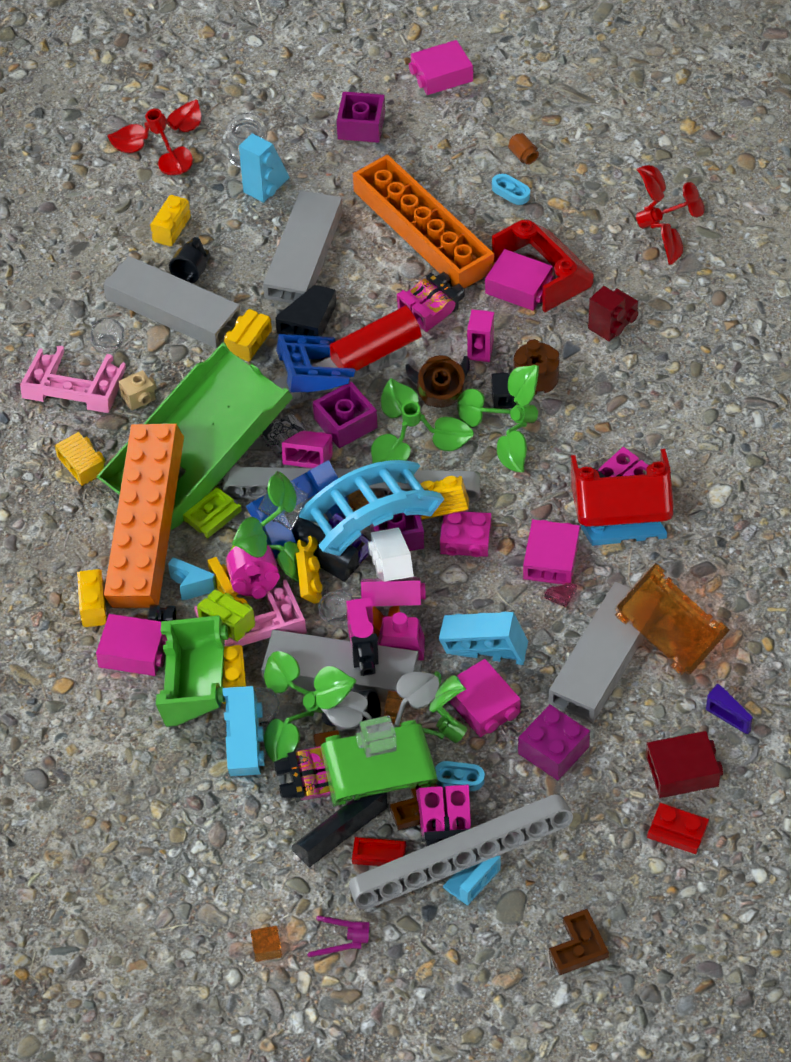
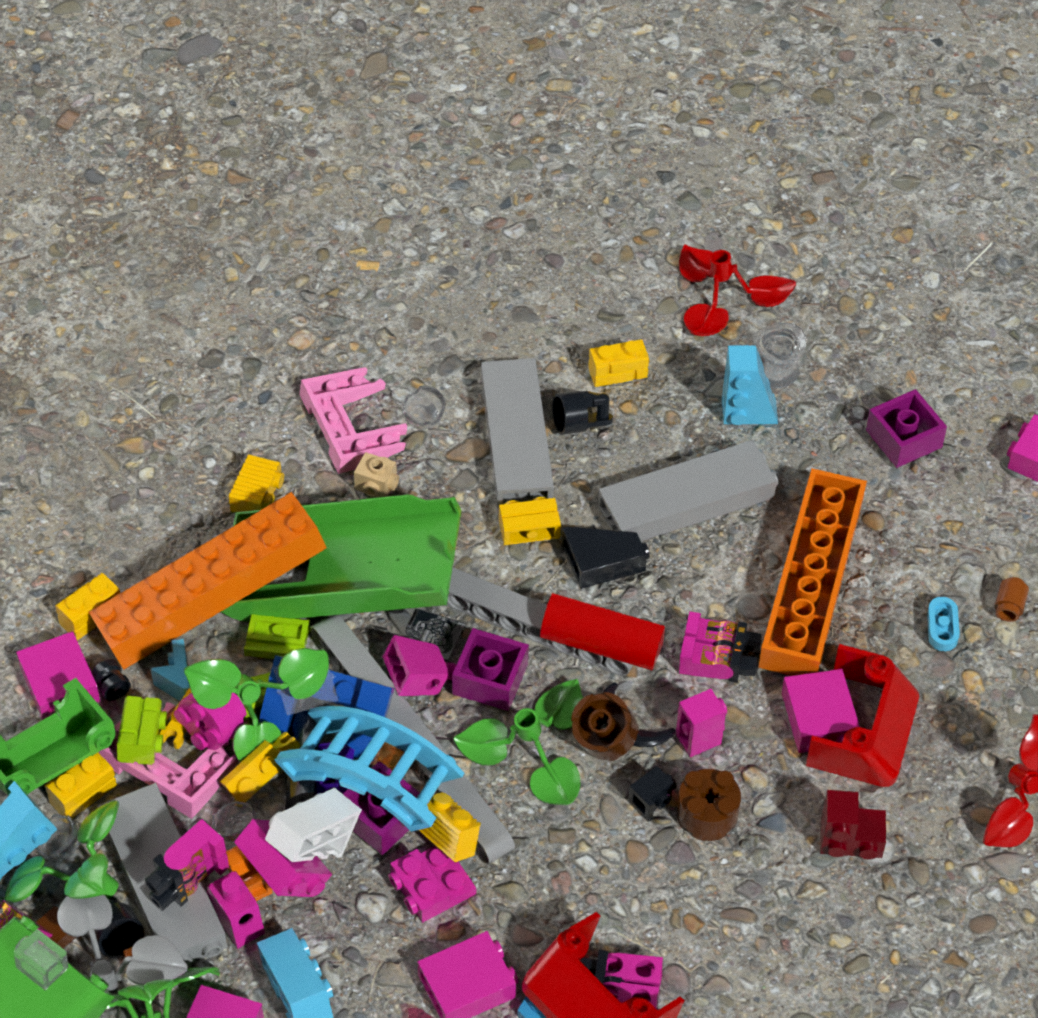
camera: 50 degrees right, 0 degrees up
(302, 377) = (496, 595): blue wedge -> none
(521, 385) = (629, 827): bright green plant -> none

